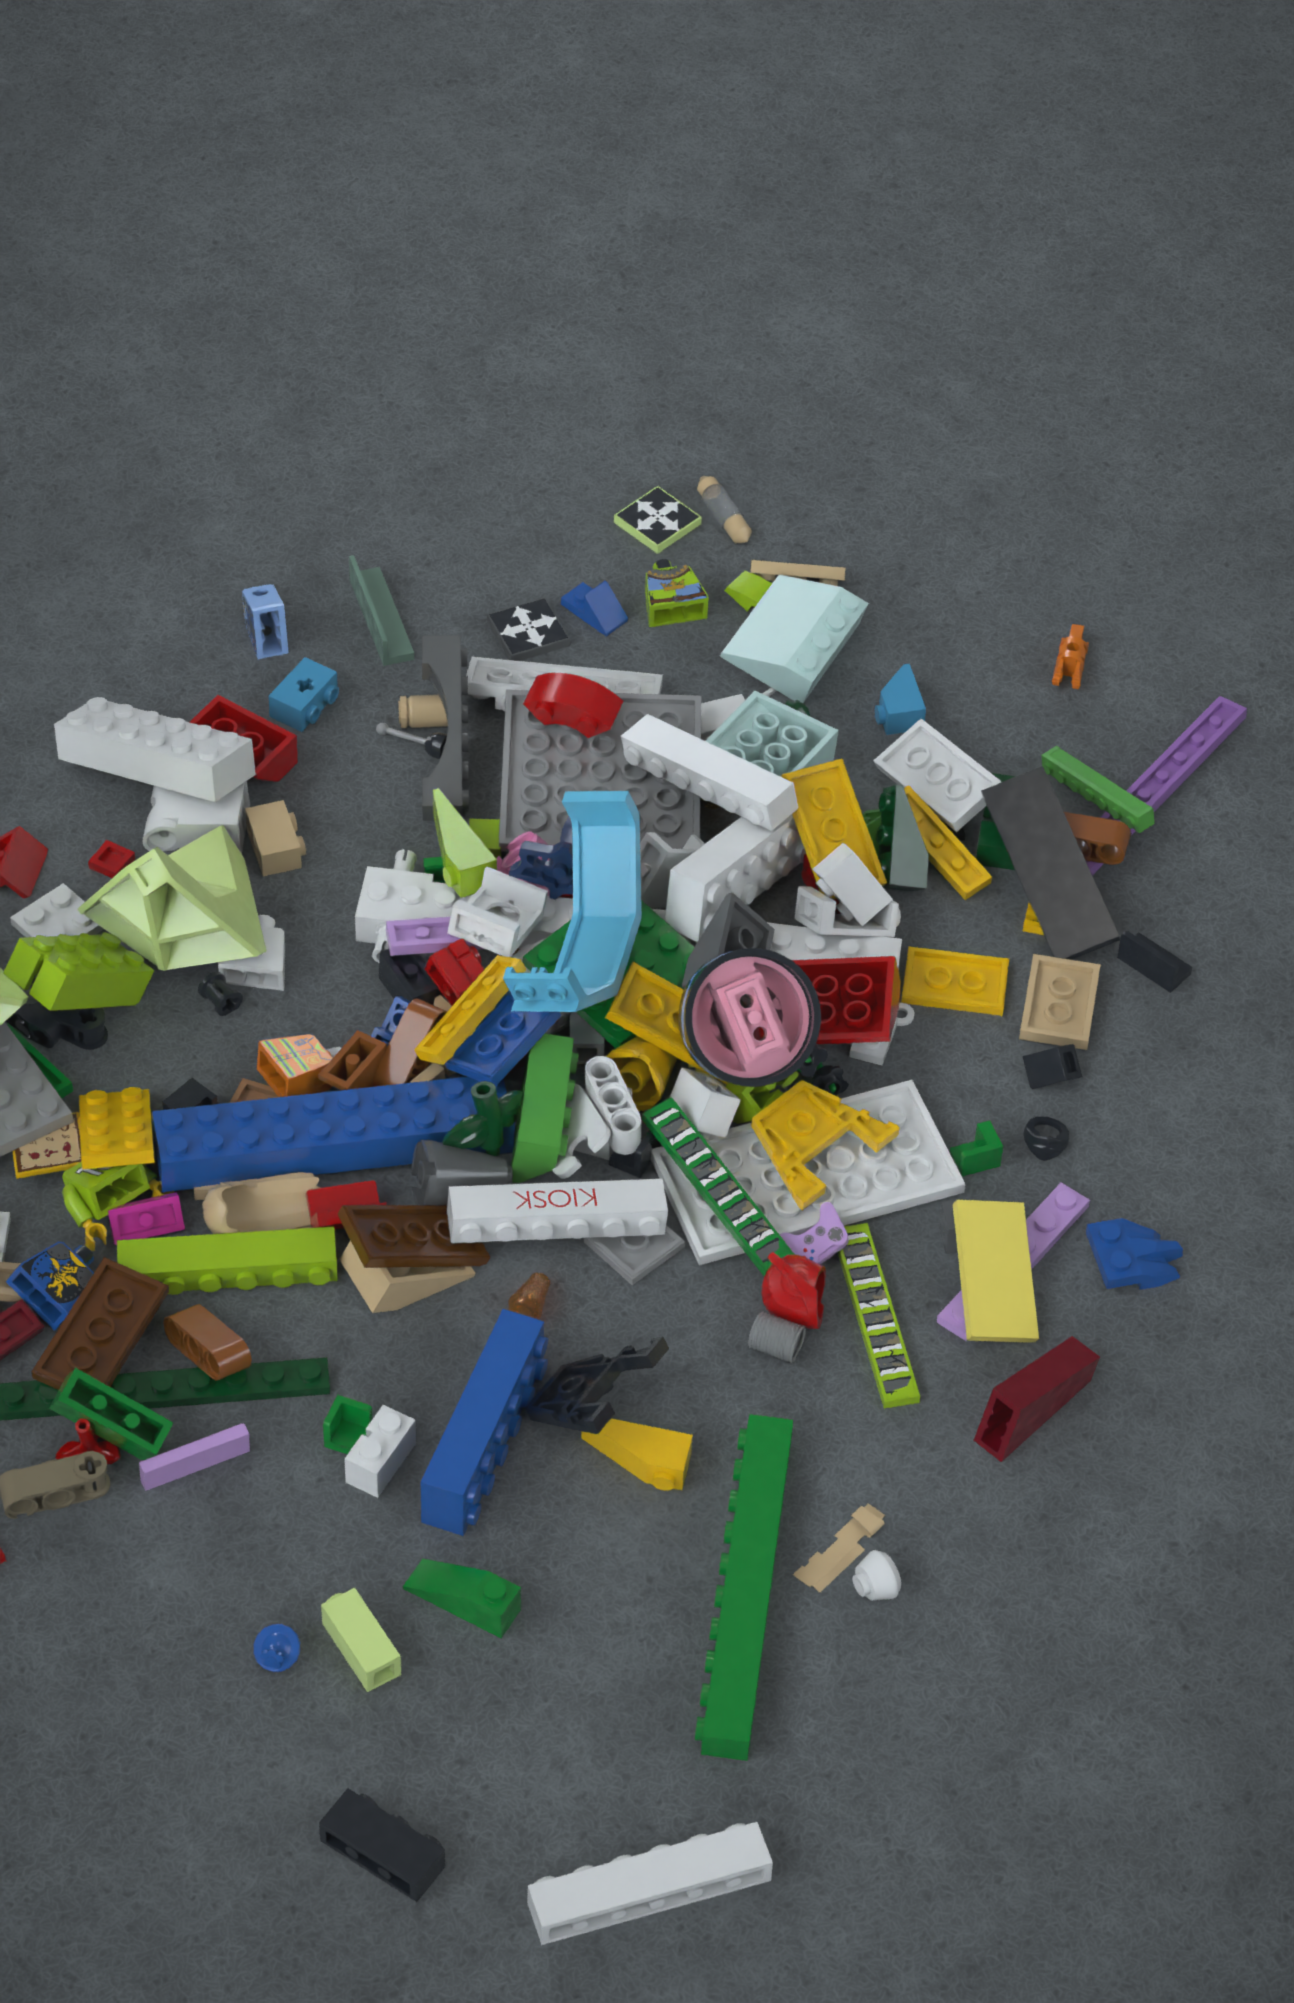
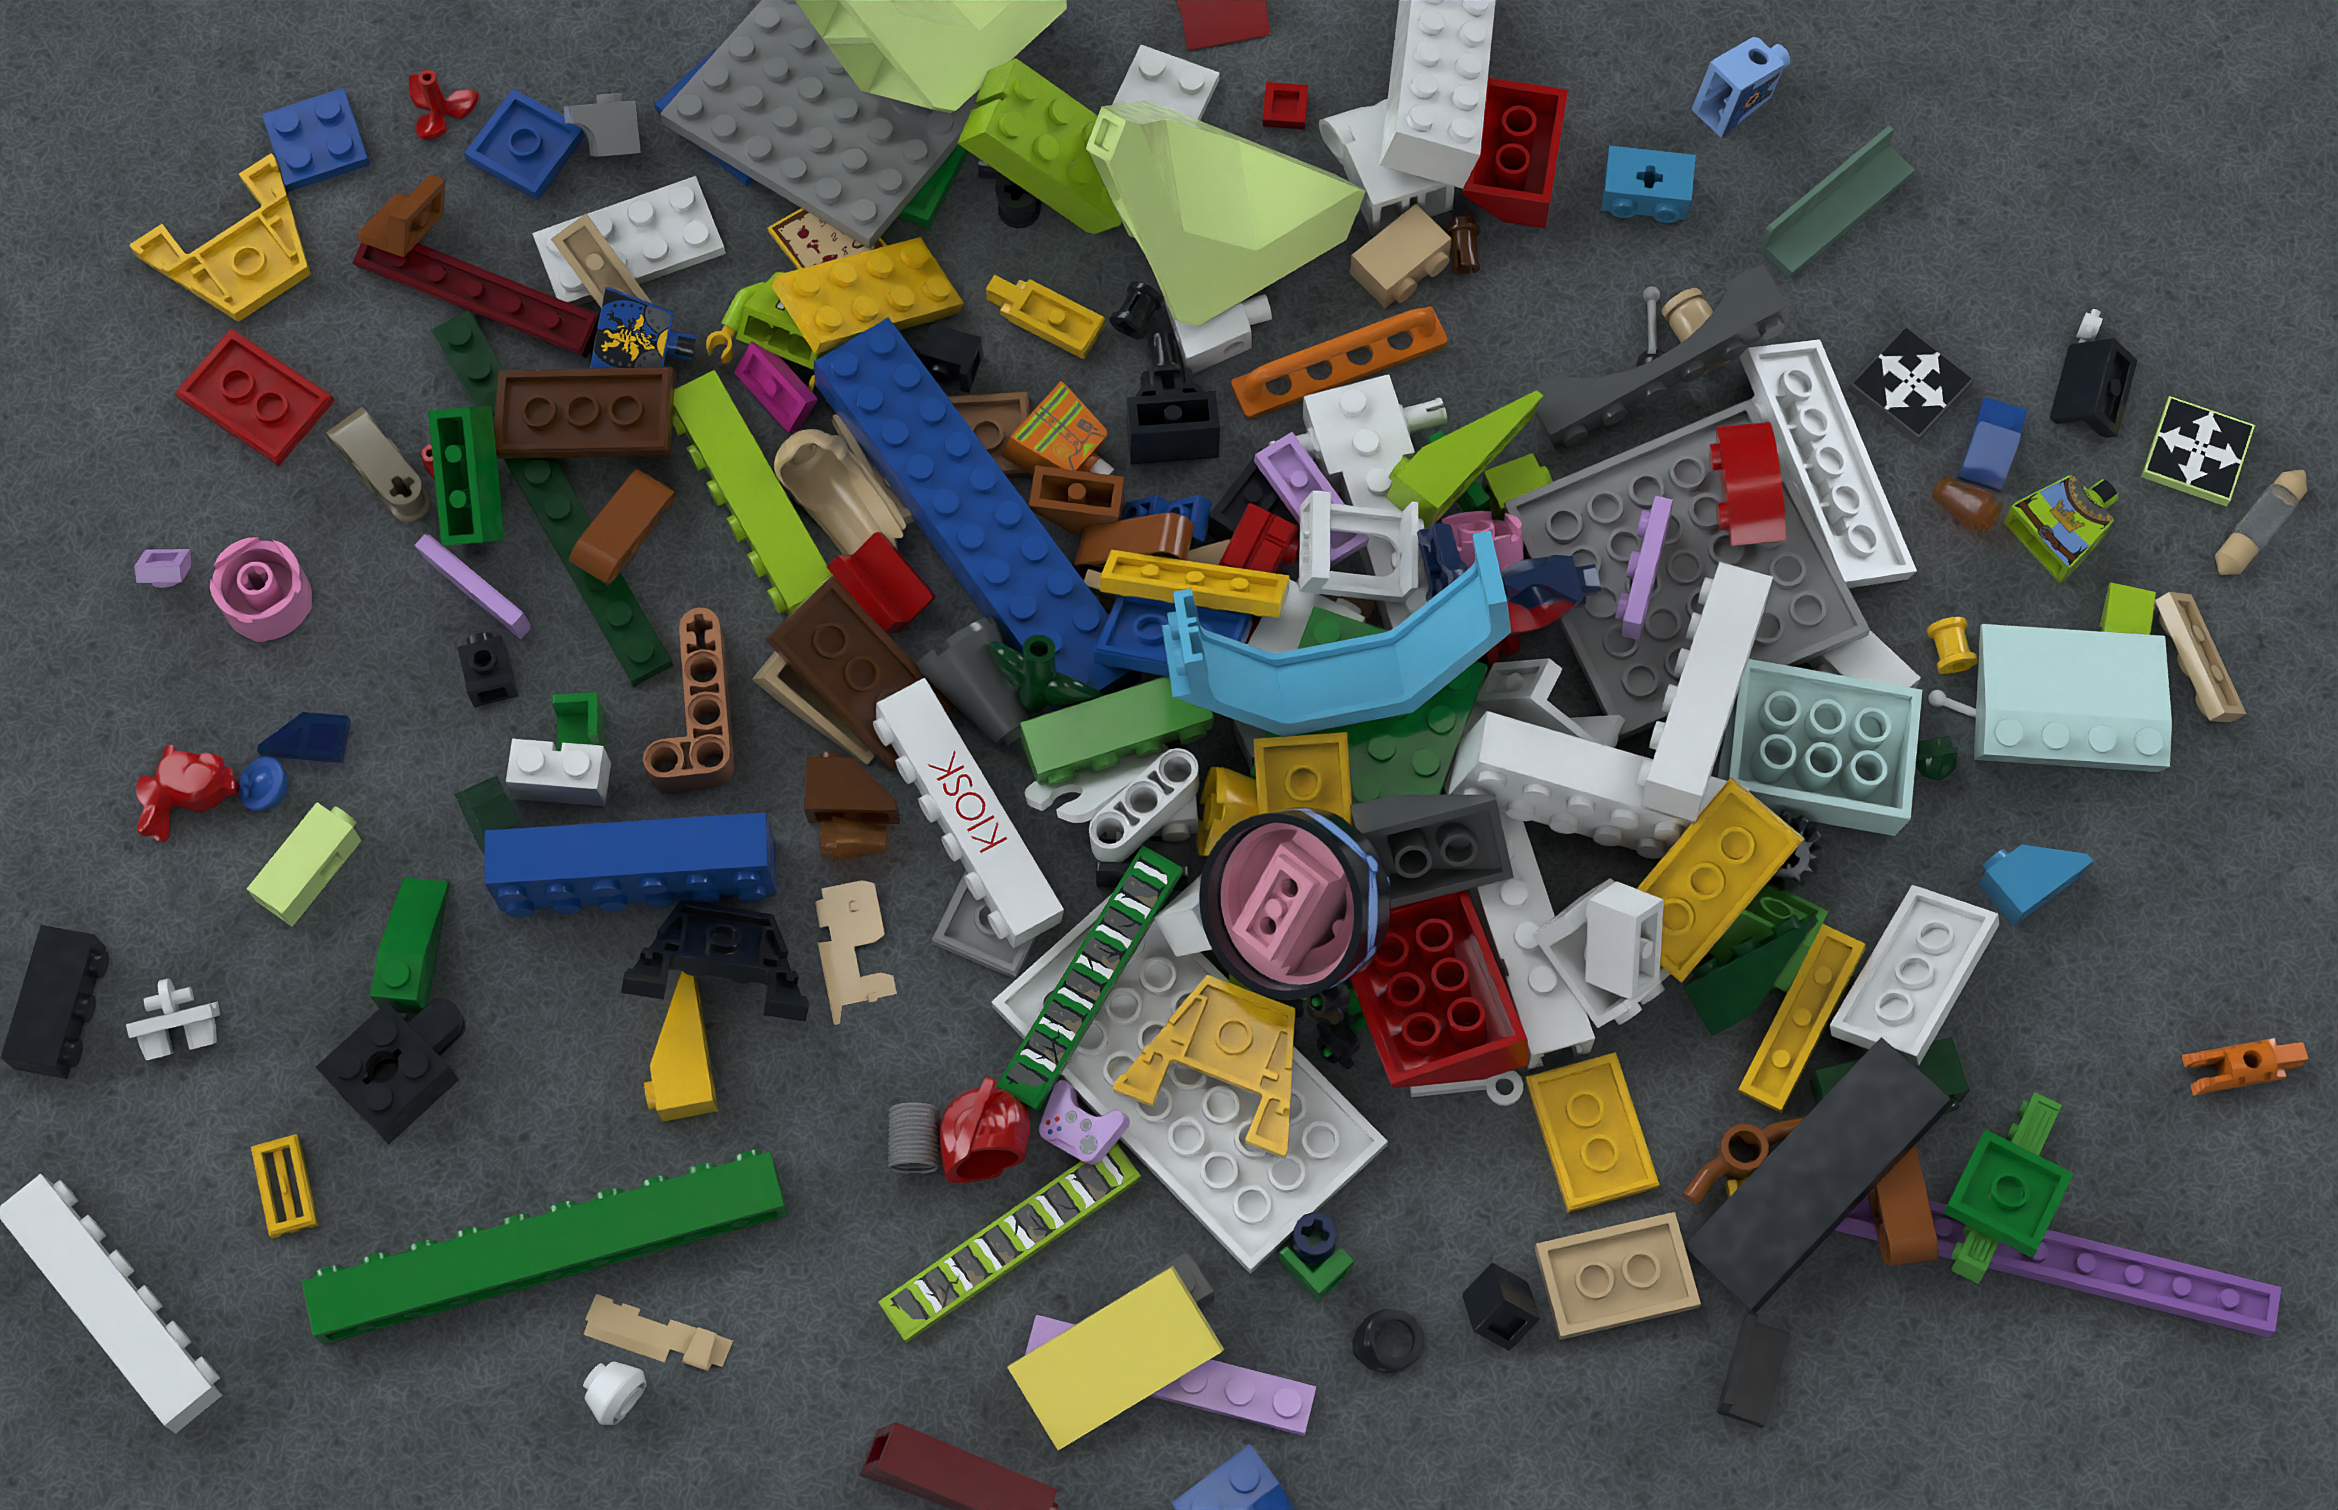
camera: 70 degrees right, 20 degrees up
(51, 1656) = (163, 567): none -> lavender plate
(116, 1590) = (261, 589): none -> bright pink brick
(188, 1045) = (1047, 314): none -> yellow hinge
(245, 1700) = (185, 782): none -> red animal
(254, 1609) = (309, 738): none -> clear blue tile
(267, 1472) = (493, 681): none -> black brick
(274, 796) = (1463, 244): none -> reddish brown pin
(314, 1001) = (1171, 417): none -> black brick
(326, 878) = (1419, 323): none -> orange piece
(365, 1343) = (699, 700): none -> nougat beam
(388, 1507) = (486, 808): none -> clear green panel
(448, 1754) = (154, 1033): none -> white hips
(492, 1284) = (845, 790): none -> reddish brown slope
(543, 532) = (2089, 326): none -> white piece
(559, 1631) = (411, 1067): none -> black brick
(583, 547) = (2095, 386): none -> black panel
(588, 774) = (1644, 567): none -> lavender plate
(597, 1325) = (853, 921): none -> tan piece
(606, 1755) = (293, 1223): none -> yellow tile
(631, 633) = (1968, 504): none -> clear orange cone
(723, 678) = (1952, 645): none -> yellow bush
(958, 1136) = (1304, 1229): none -> dark blue bush
(1010, 908) = (1726, 1165): none -> dark orange piece
(1109, 777) = (2008, 1193): none -> green plate

